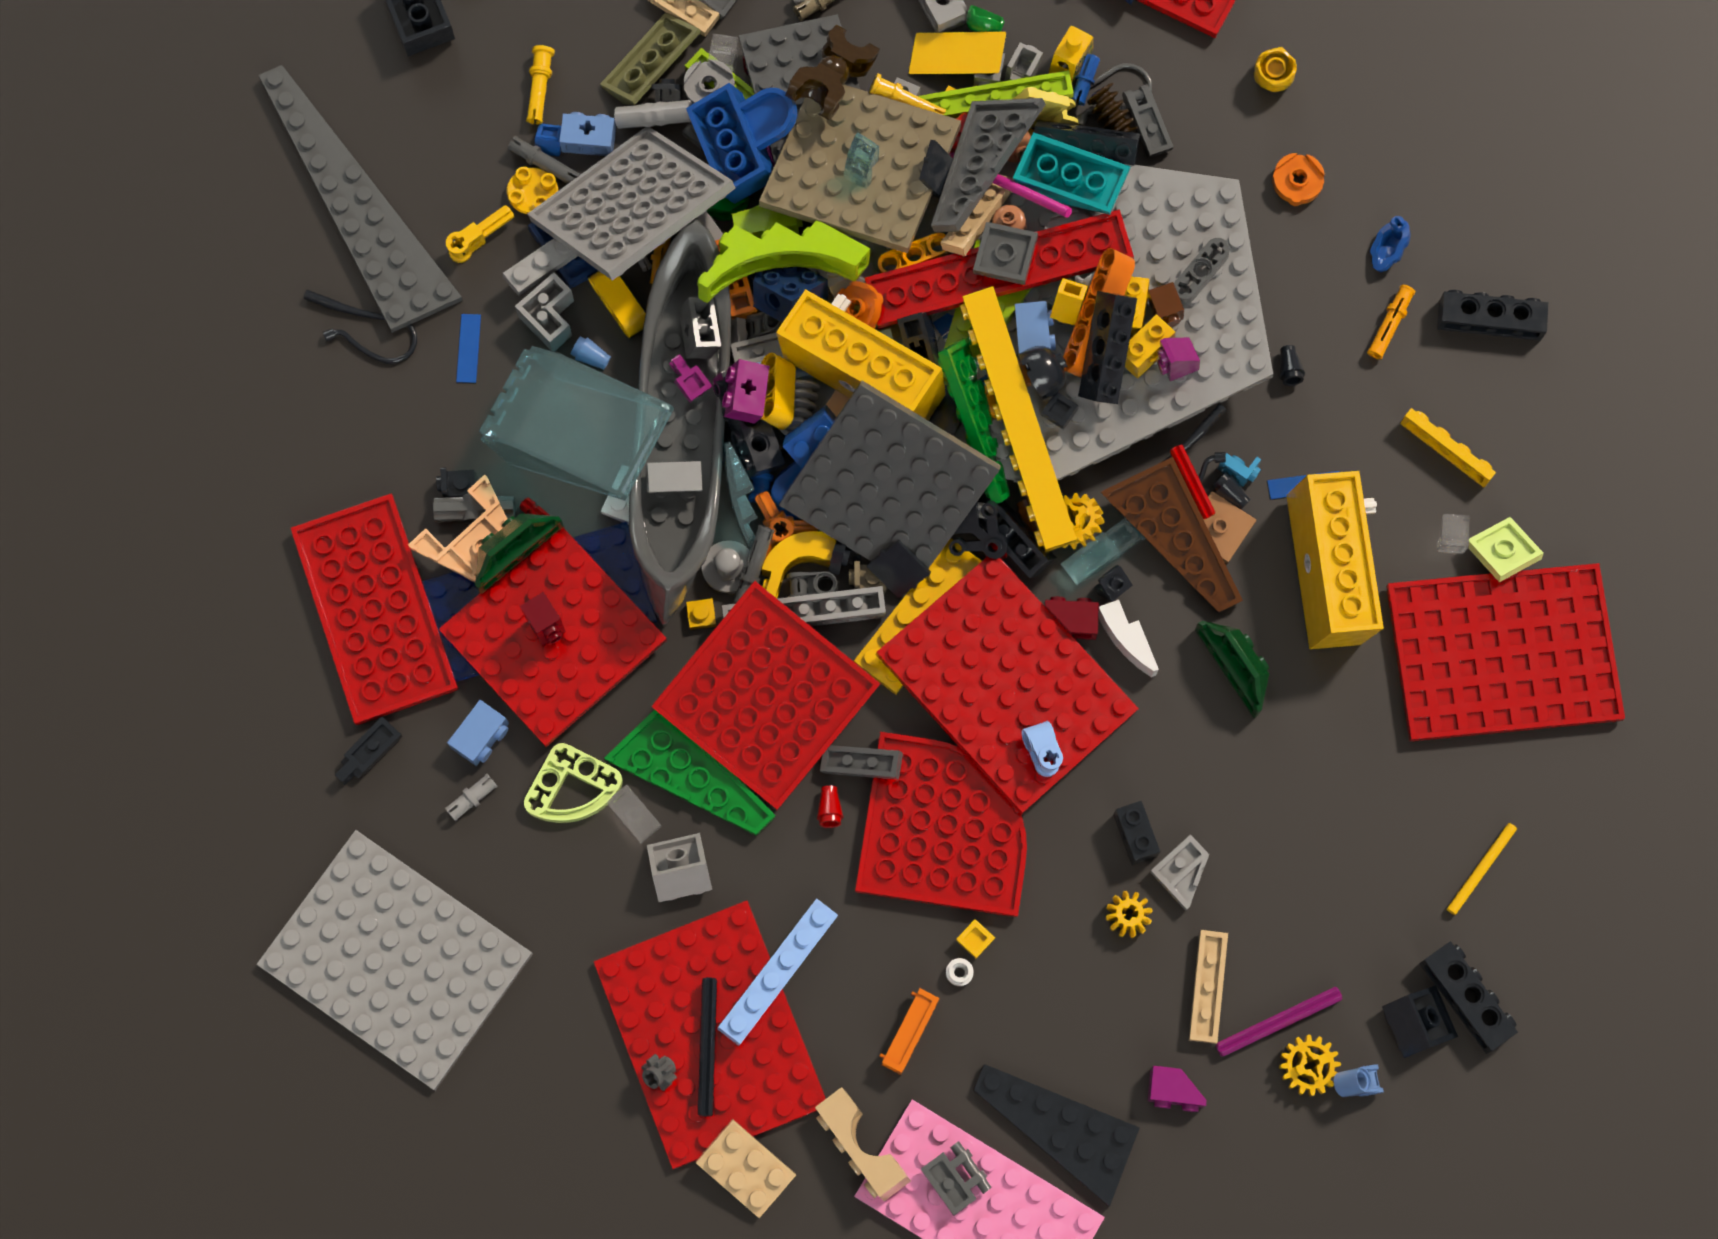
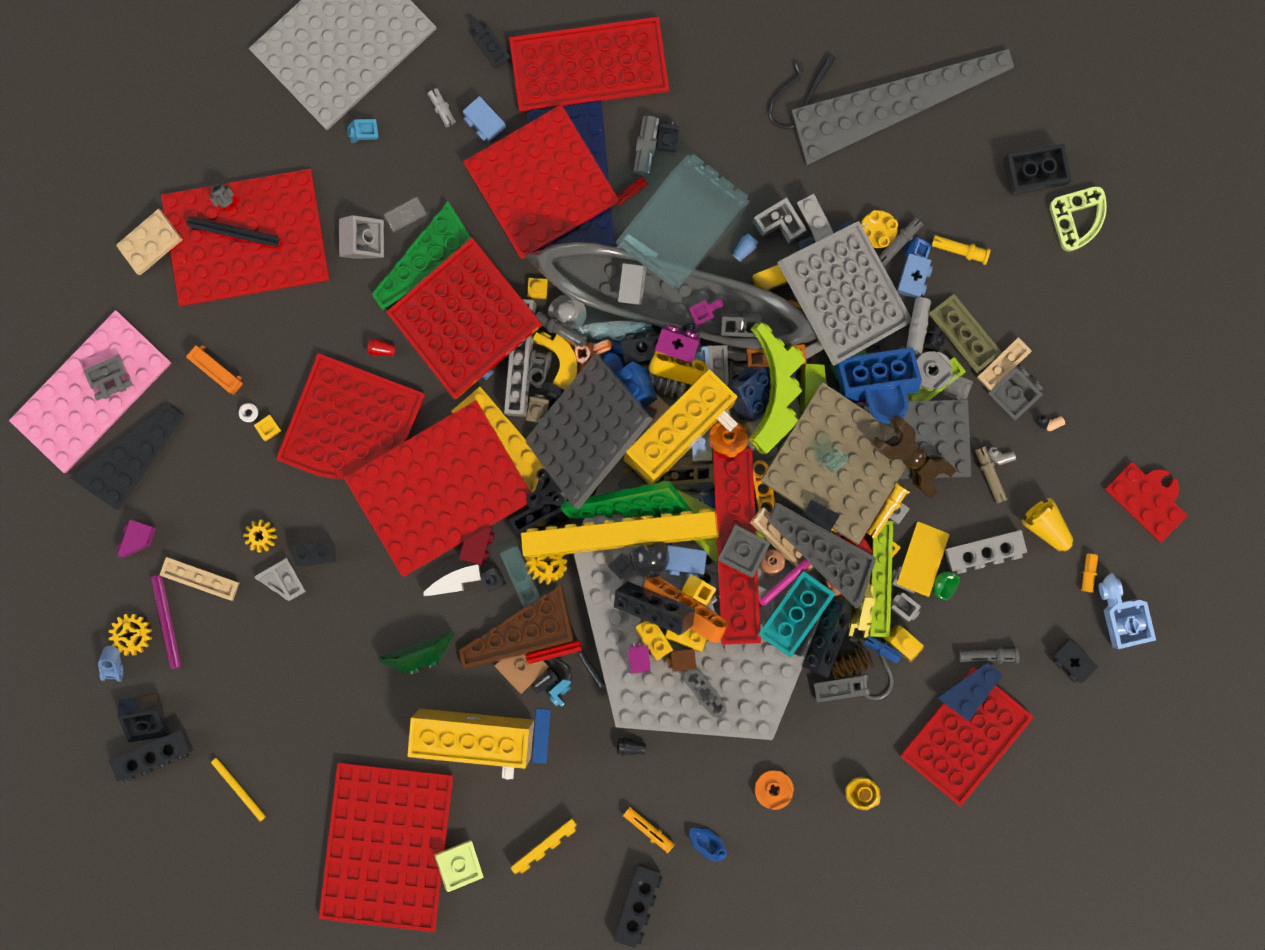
camera: 105 degrees right, 10 degrees up
(462, 552) = (613, 143): light nougat wing -> none
(468, 348) = (769, 163): blue sticker -> none
(474, 235) = (852, 183): yellow connector -> none
(512, 545) = (606, 161): dark green wedge -> none
(524, 899) = (362, 130): none -> dark azure bracket
(543, 619) = (544, 173): dark red brick -> none
(561, 770) = (446, 171): yellowish green beam -> none
(777, 972) = (273, 289): light blue plate -> none
(862, 762) = (404, 376): dark grey plate -> none
(882, 1172) = (167, 311): tan arch -> none
(898, 569) = (535, 429): black piece -> none
(1042, 744) = (385, 499): light blue piece -> none
(1454, 534) = (479, 833): clear panel -> none

